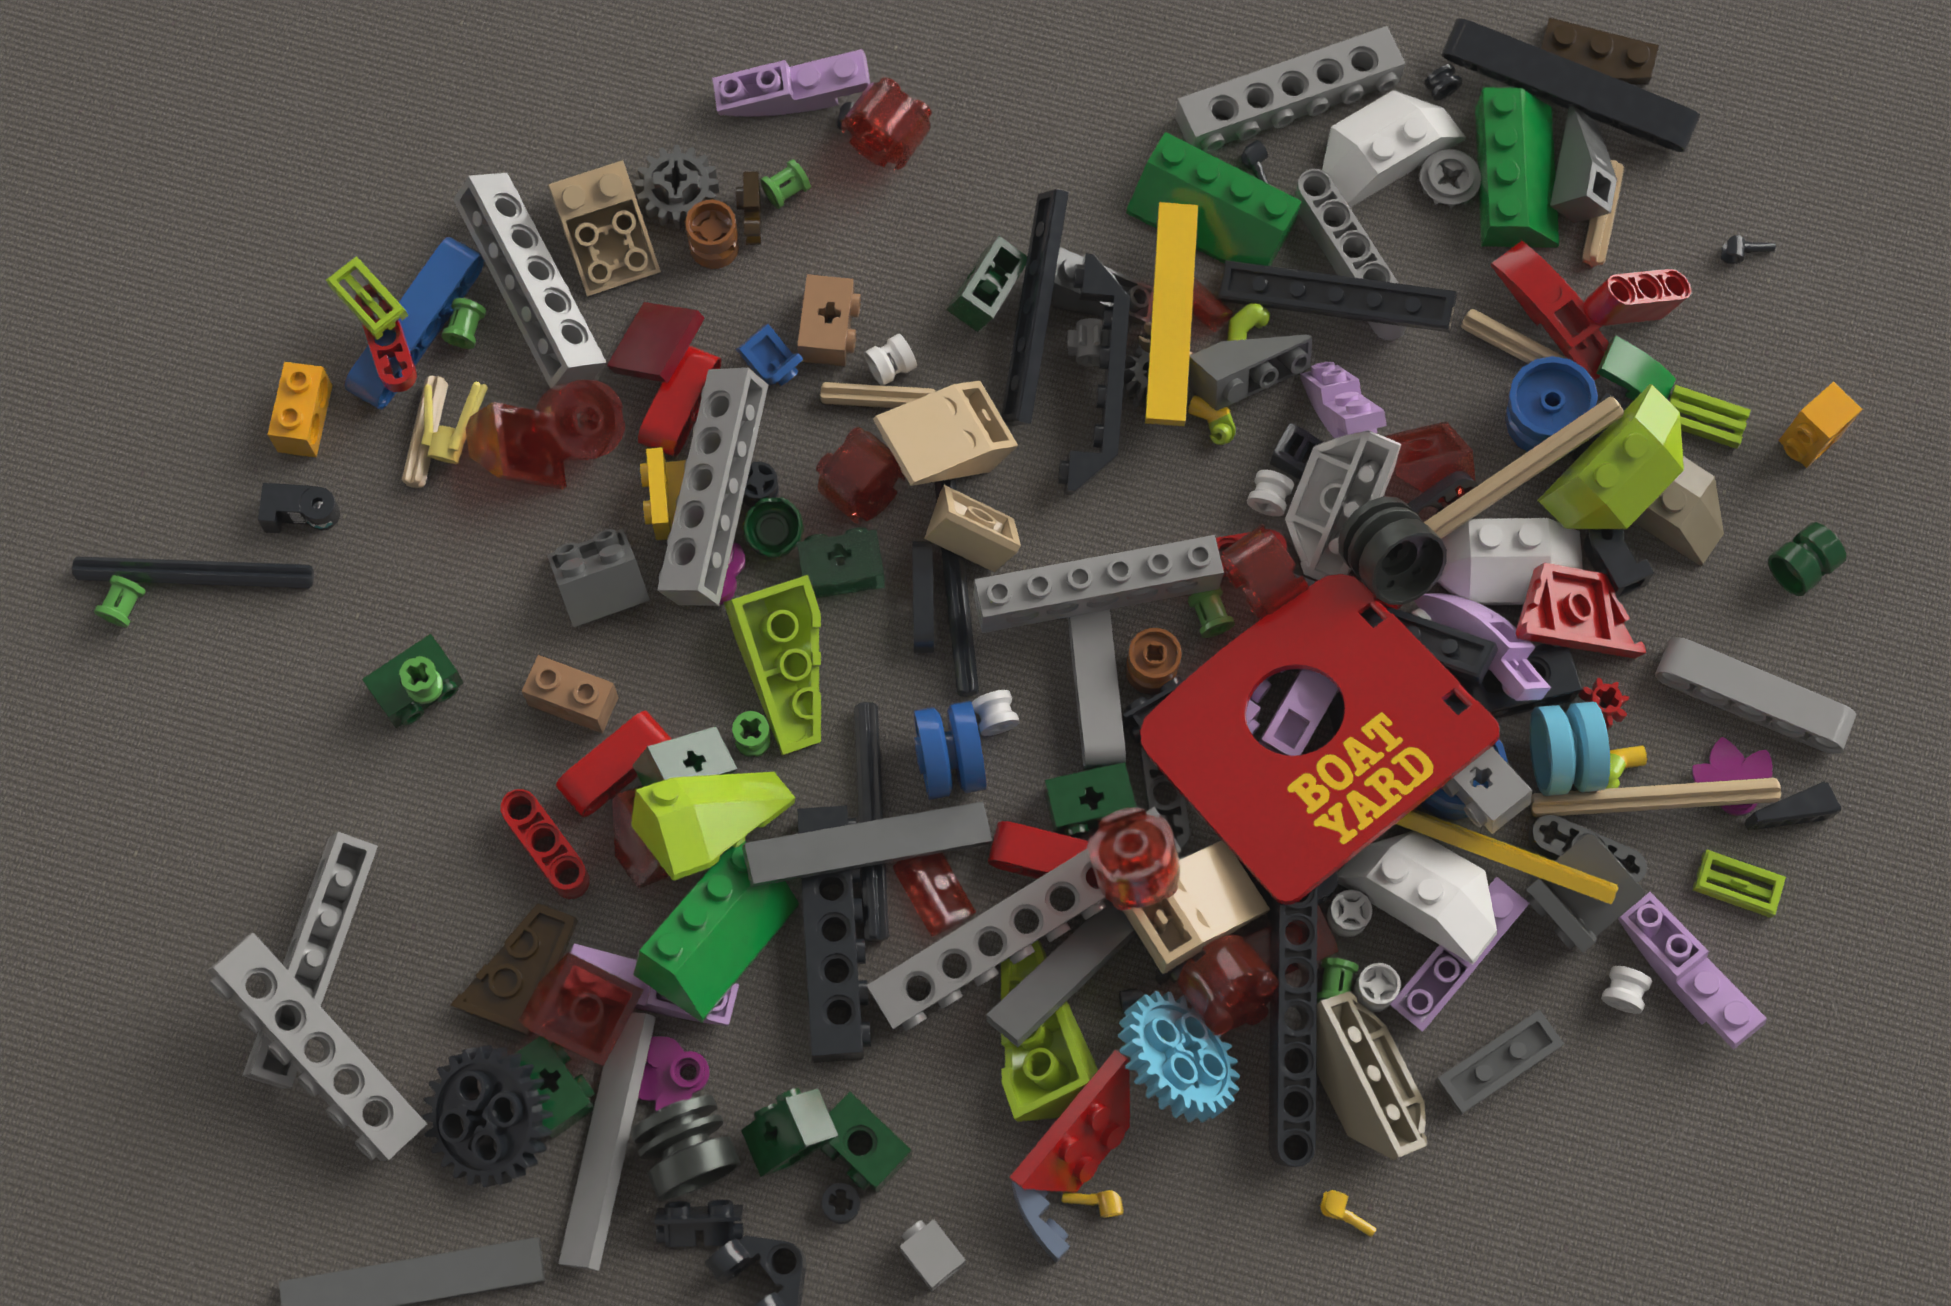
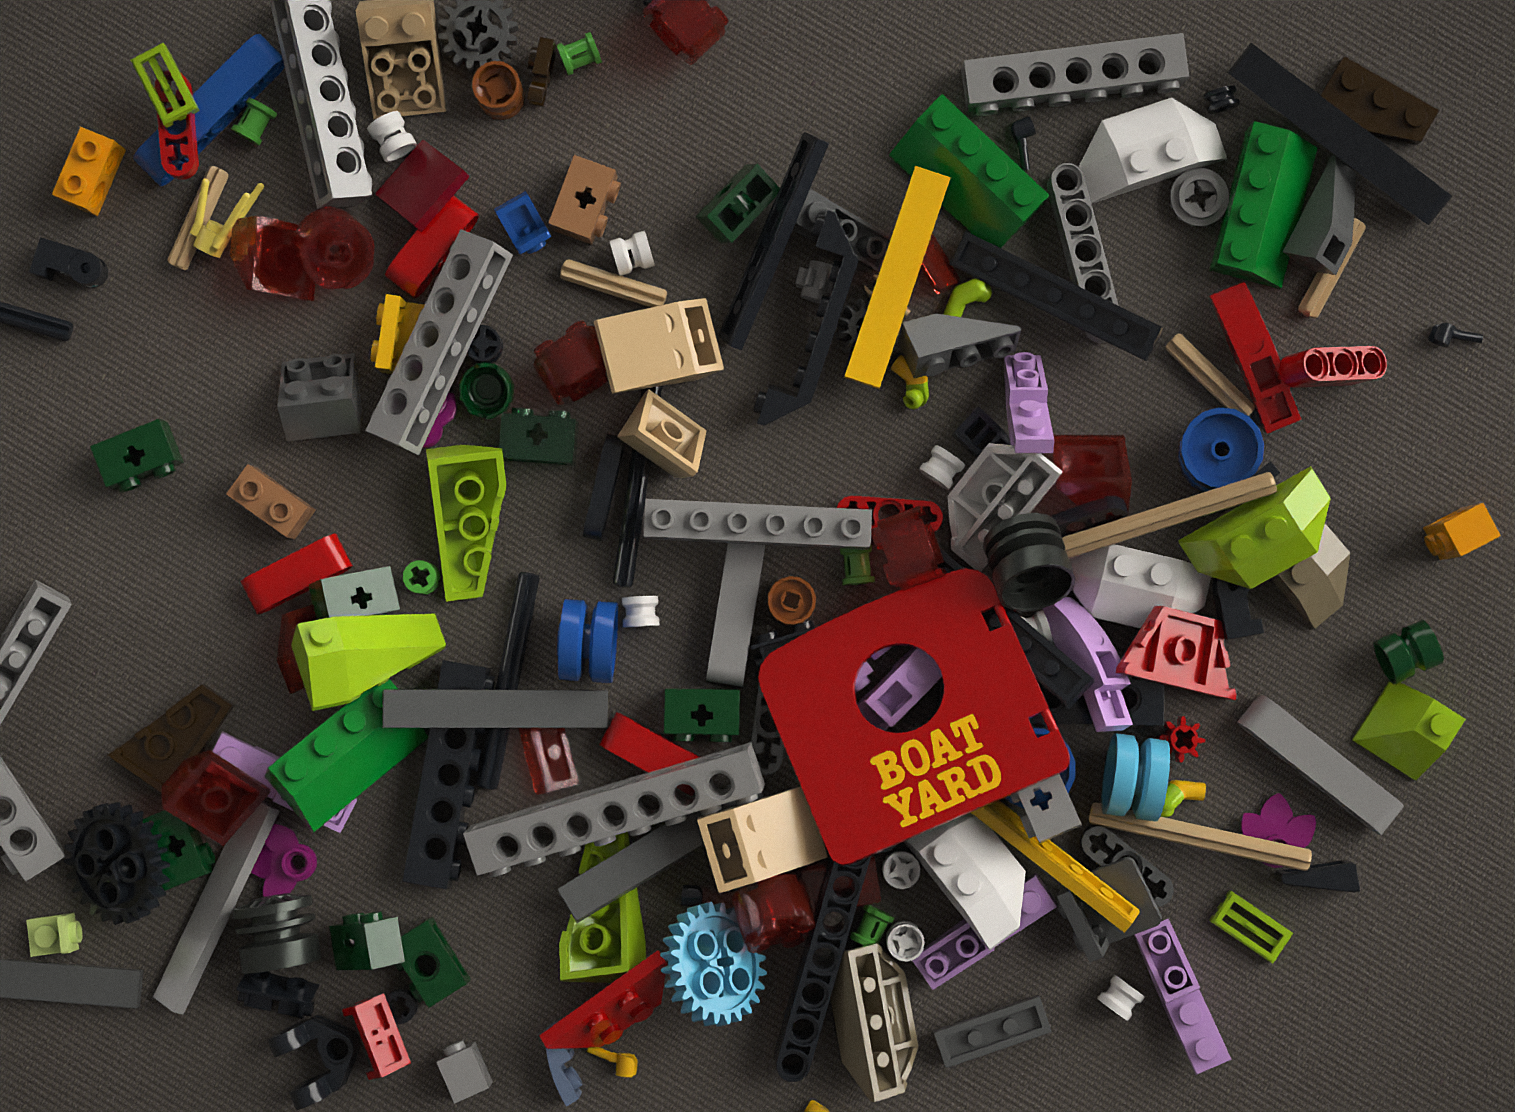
camera: 20 degrees right, 15 degrees up
(421, 691) = (128, 467): bright green bush -> none
(430, 1222) = (54, 934): none -> yellowish green bracket
(537, 826) = (206, 620): red beam -> none
(610, 302) = (391, 136): none -> white wheel
(827, 1234) = (379, 1035): none -> hinge
(1134, 858) = (693, 794): clear red brick -> none
(1634, 369) = (1311, 436): green slope -> none
(1708, 410) = (1389, 507): lime tile -> none
(1834, 638) = (1408, 729): none -> lime slope

